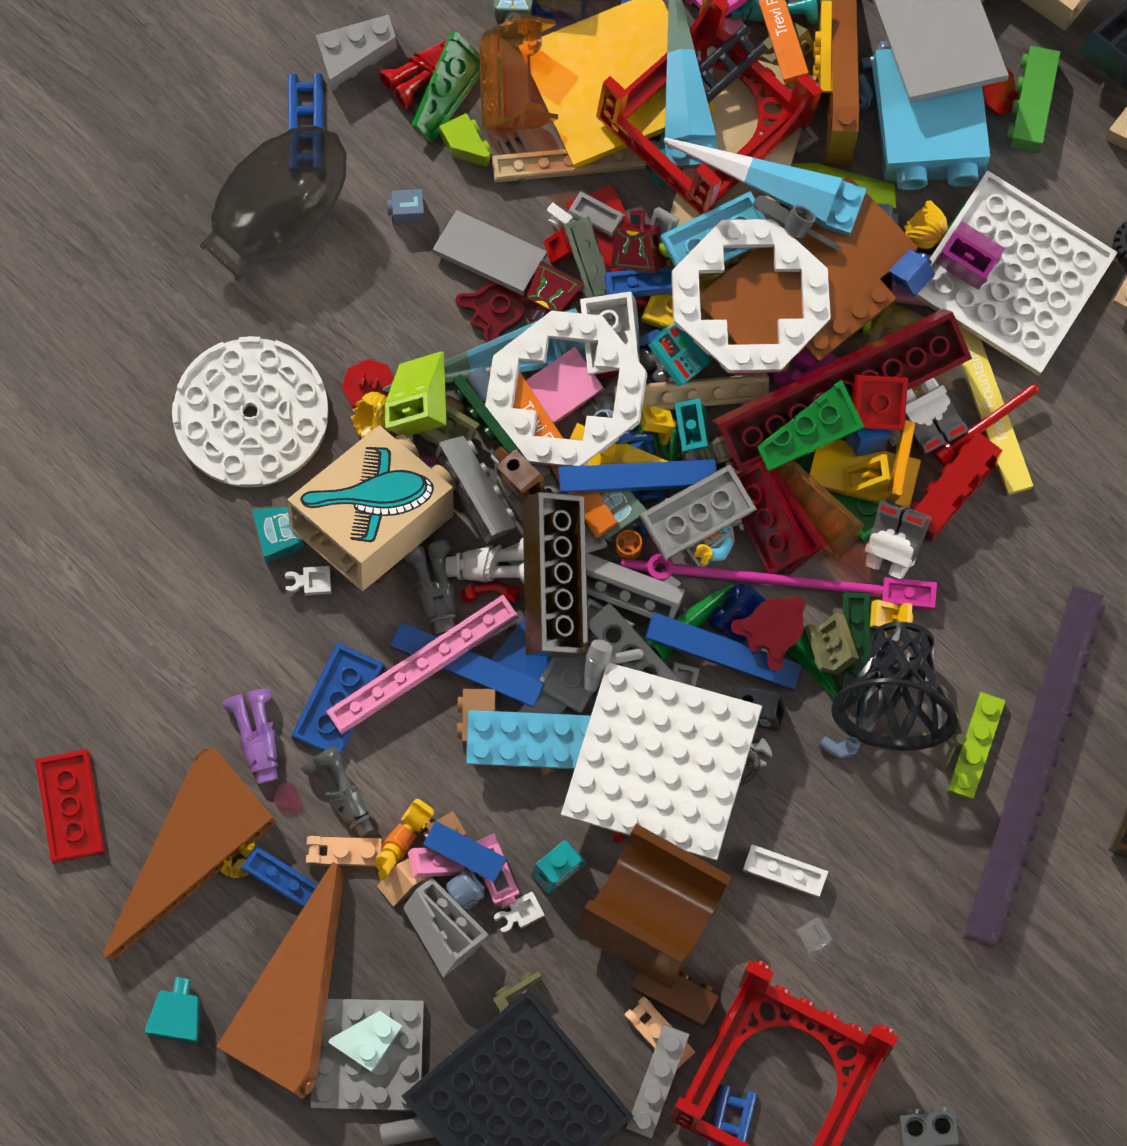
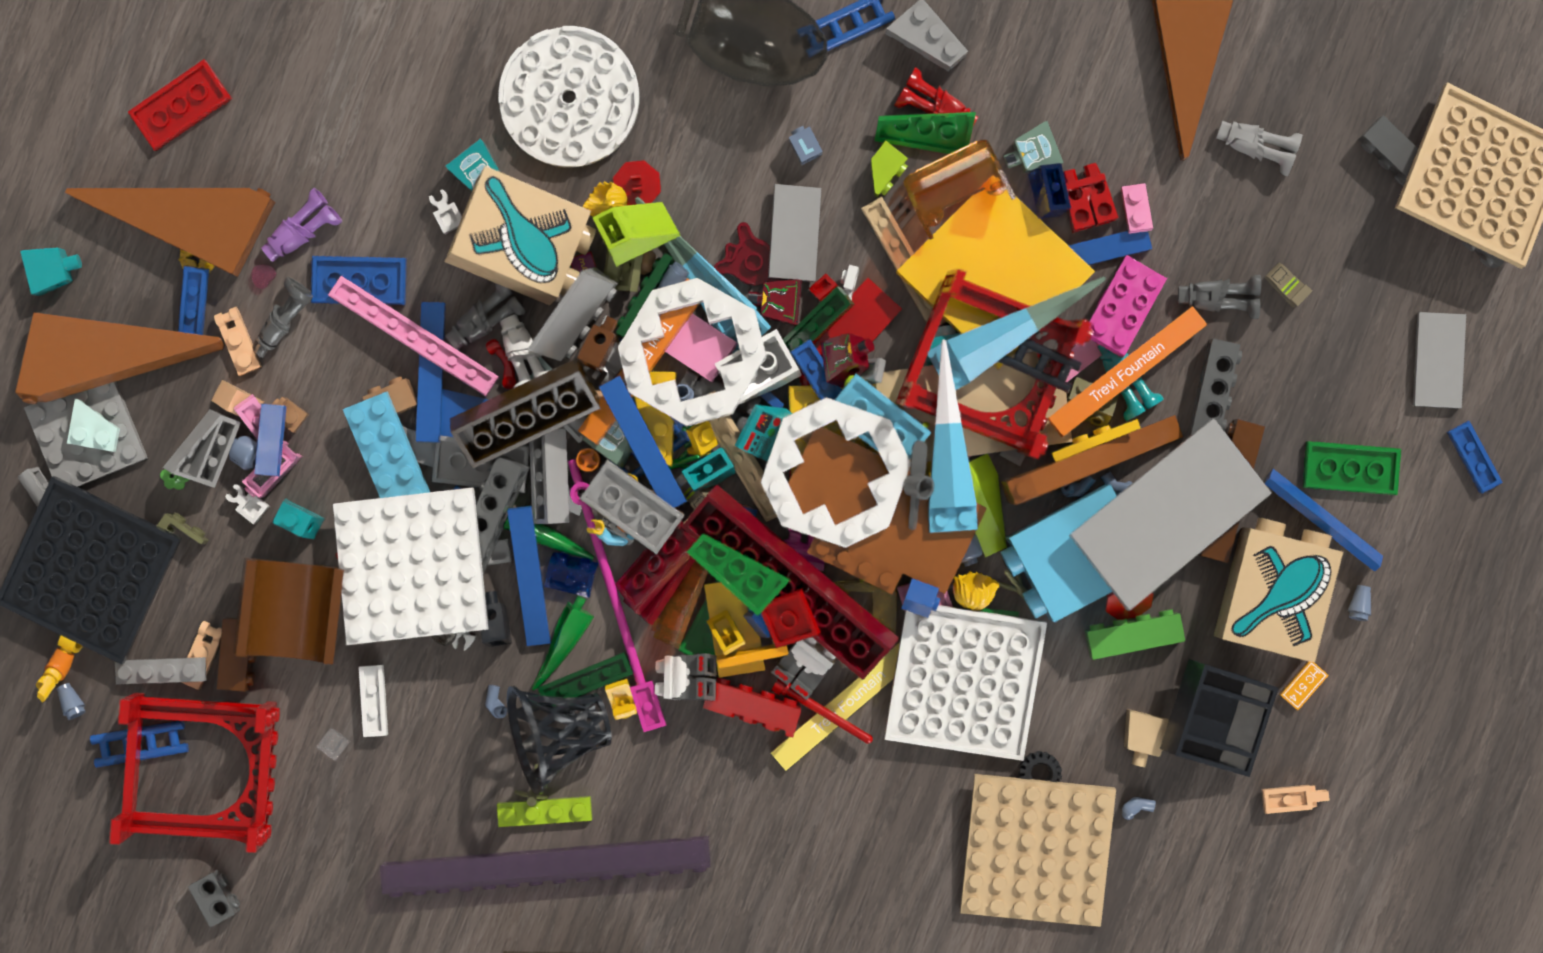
camera: 65 degrees right, 15 degrees up
(402, 837) = (266, 383): yellow piece -> none
(457, 987) = (169, 482): none -> bright green plant
(597, 659) = (473, 479): light grey piece -> none
(602, 217) = (866, 307): light grey tile -> none
(774, 627) = (564, 609): dark red tile -> none
(832, 644) = (572, 662): olive bracket -> none
(942, 187) = (1018, 584): none -> olive plant
(970, 255) = (959, 641): magenta slope -> none

